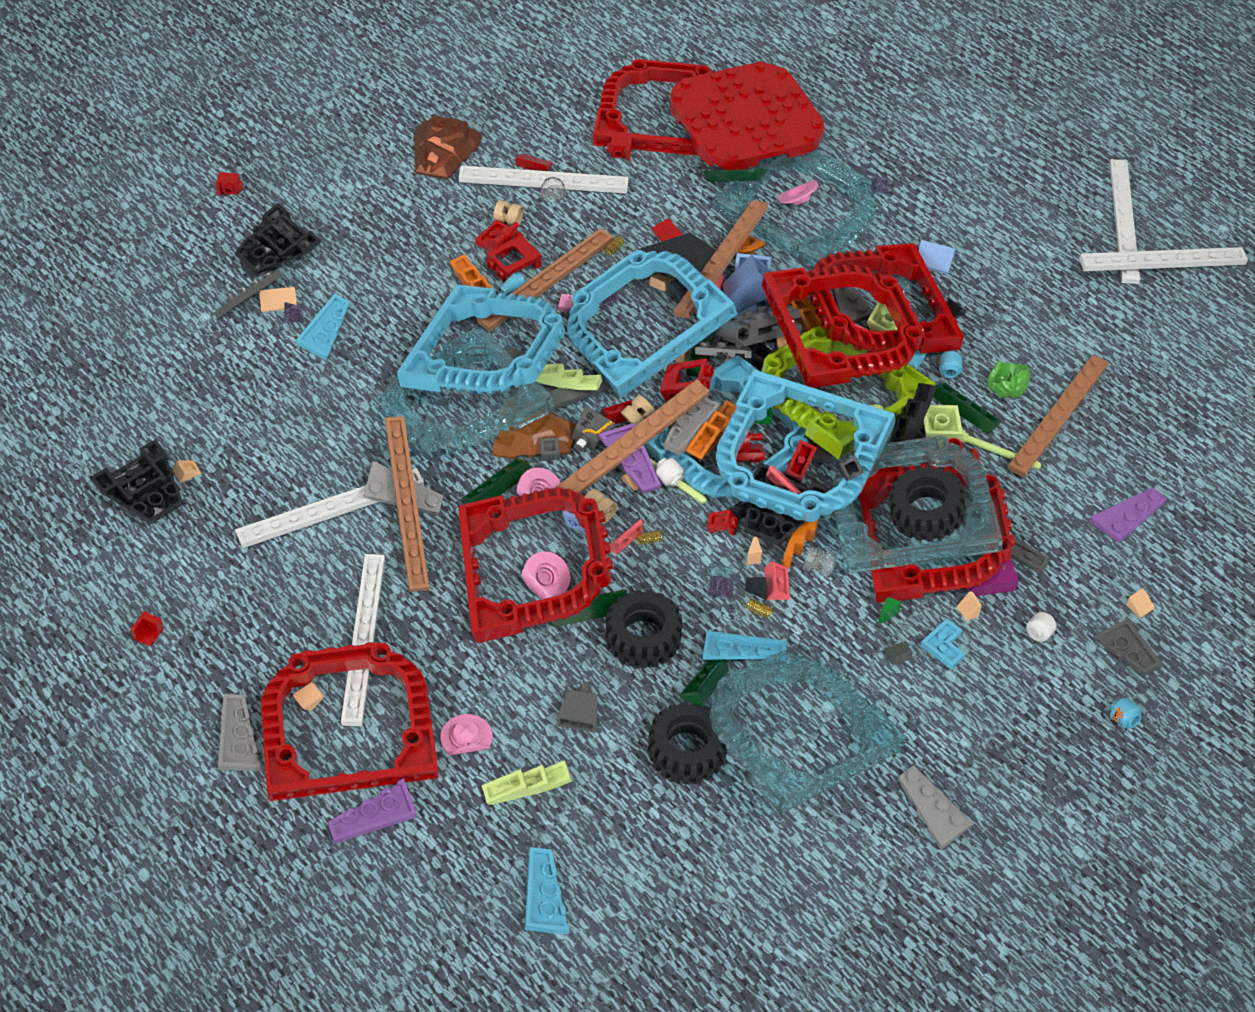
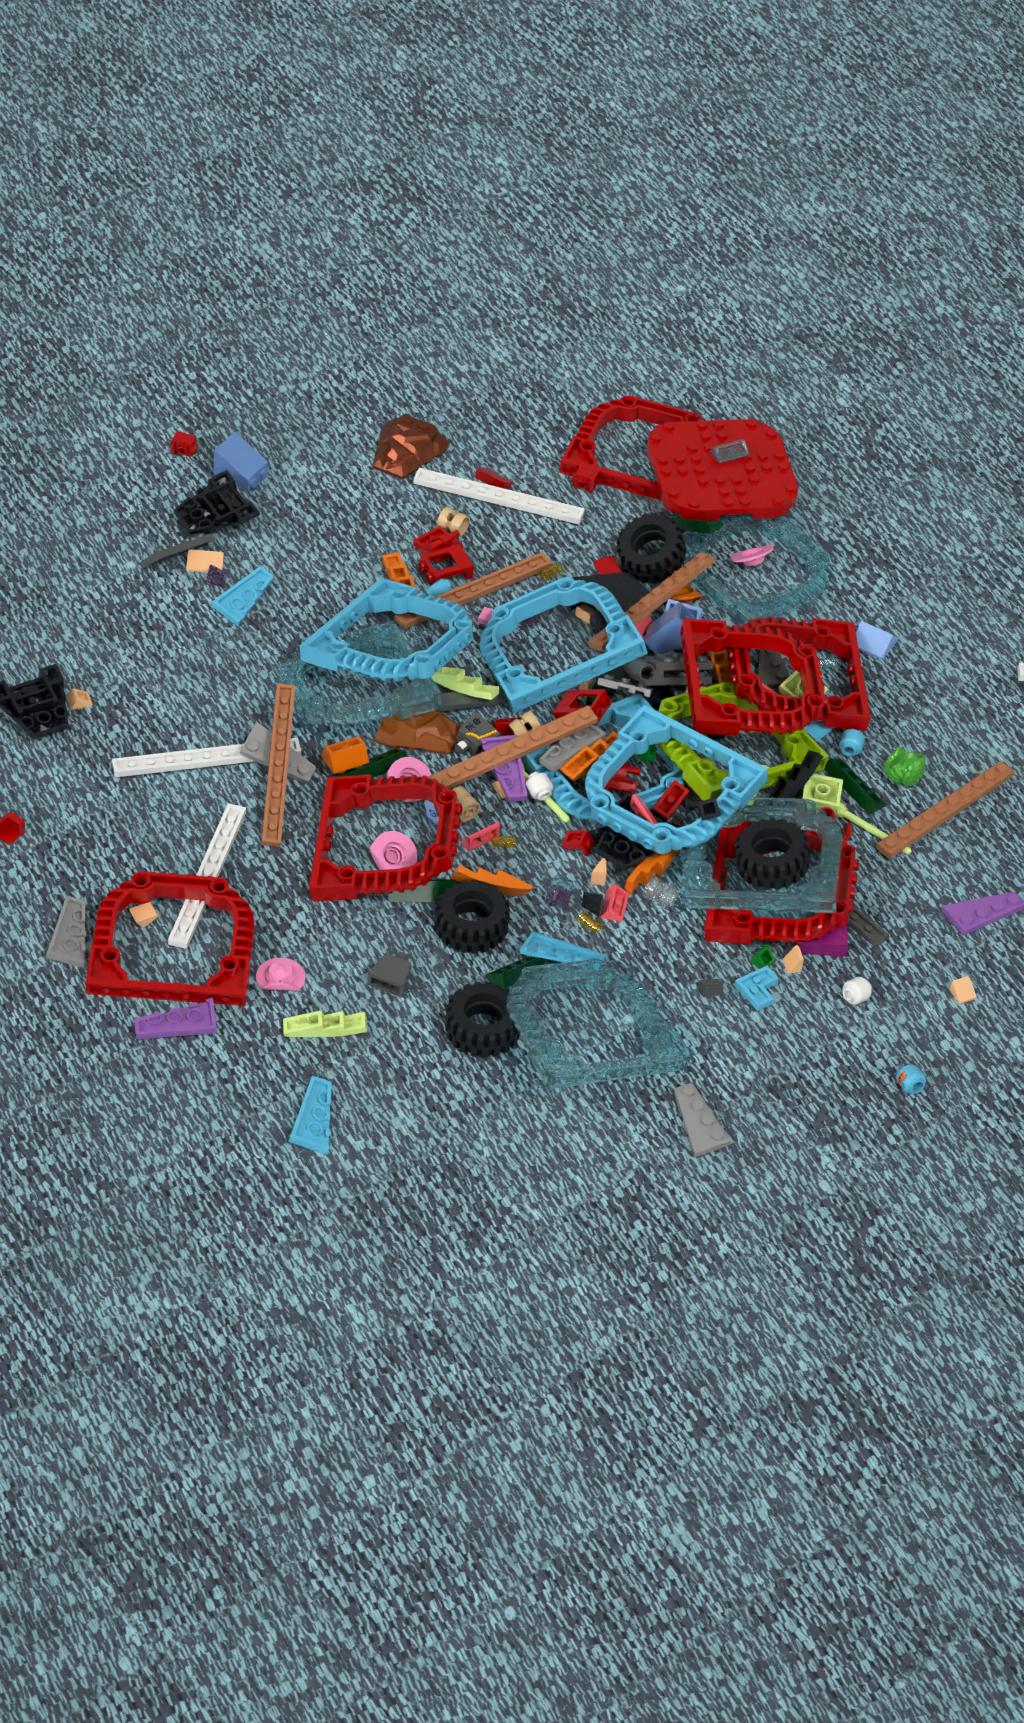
camera: 10 degrees right, 5 degrees down
(289, 191) = (241, 462): none -> medium blue slope
(470, 478) = (345, 755): none -> orange slope
(549, 449) = (430, 745): dark grey slope -> none
(553, 190) = (504, 507): clear hair -> none
(659, 583) = (503, 881): none -> orange slope
(699, 186) = (645, 530): none -> black tyre
(751, 96) = (730, 451): none -> clear light blue slope
(879, 185) = (840, 562): slope -> none
(890, 609) = (714, 947): green slope -> none
(939, 610) = (763, 957): none -> green slope
(955, 309) = (875, 694): black slope -> none
(1129, 646) = (936, 1025): dark grey wing -> none

